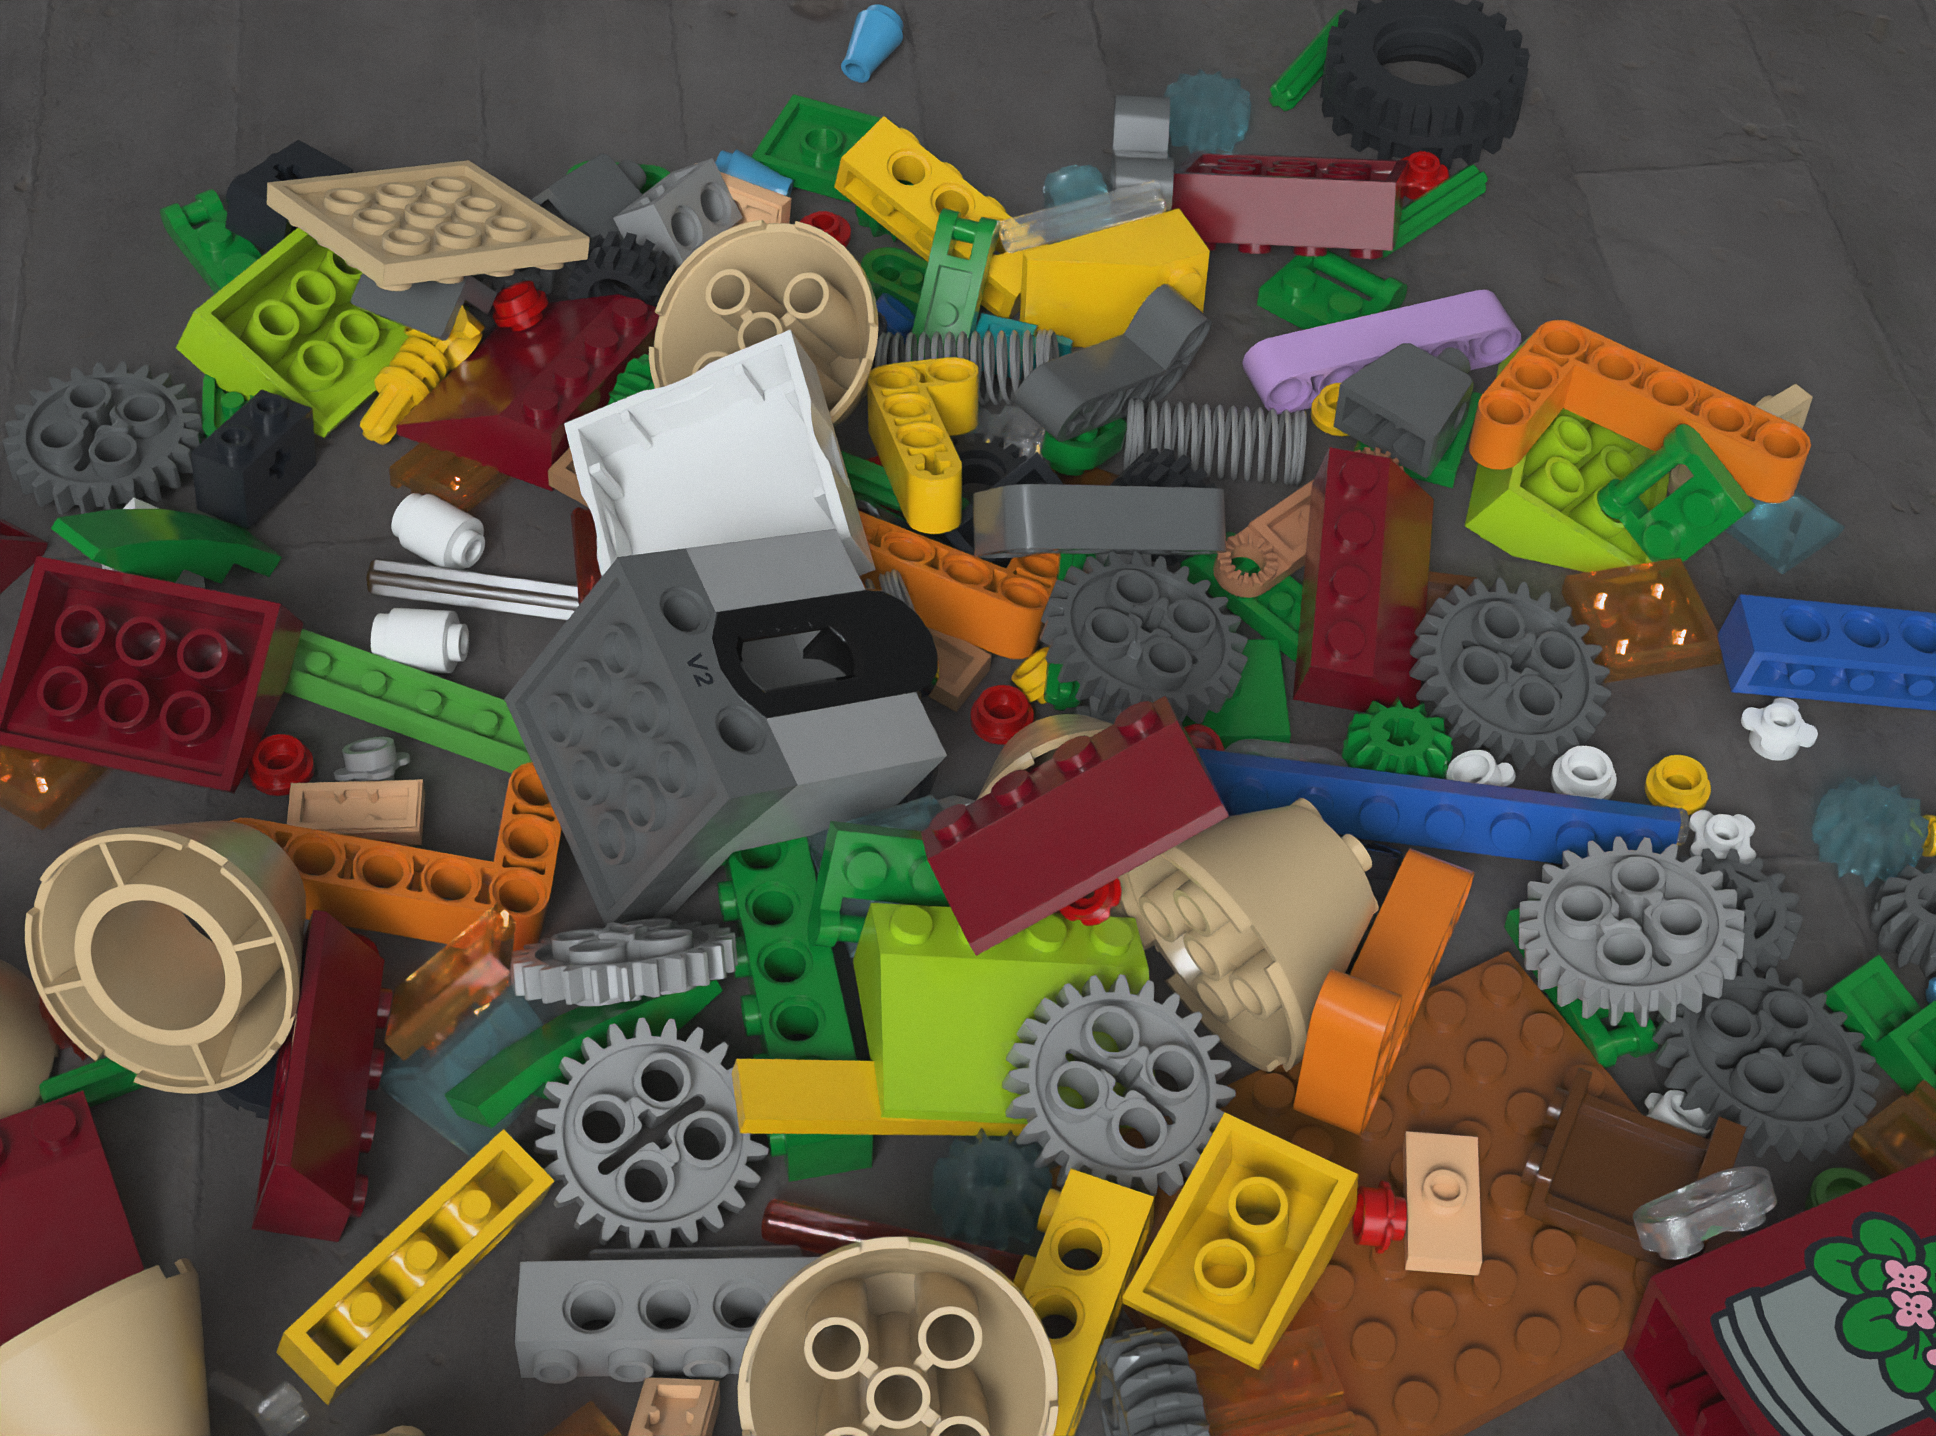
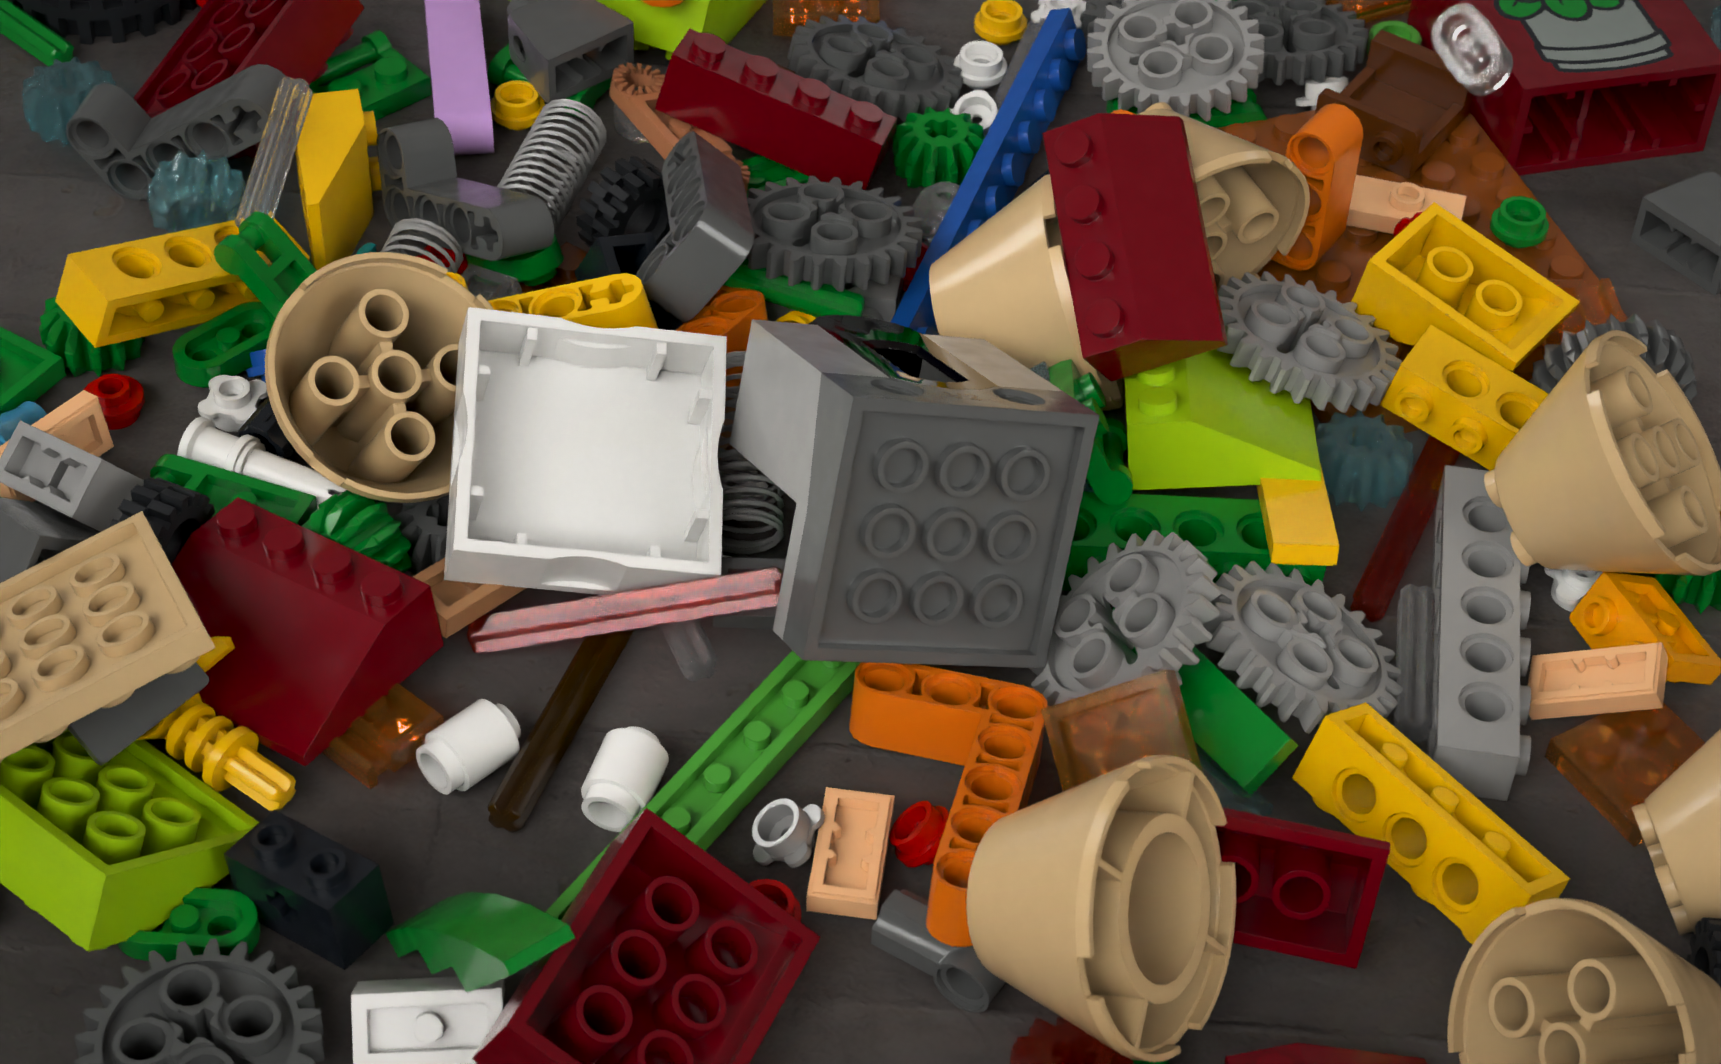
camera: 80 degrees left, 5 degrees down
(1461, 1312) = (1520, 222): none -> green plate

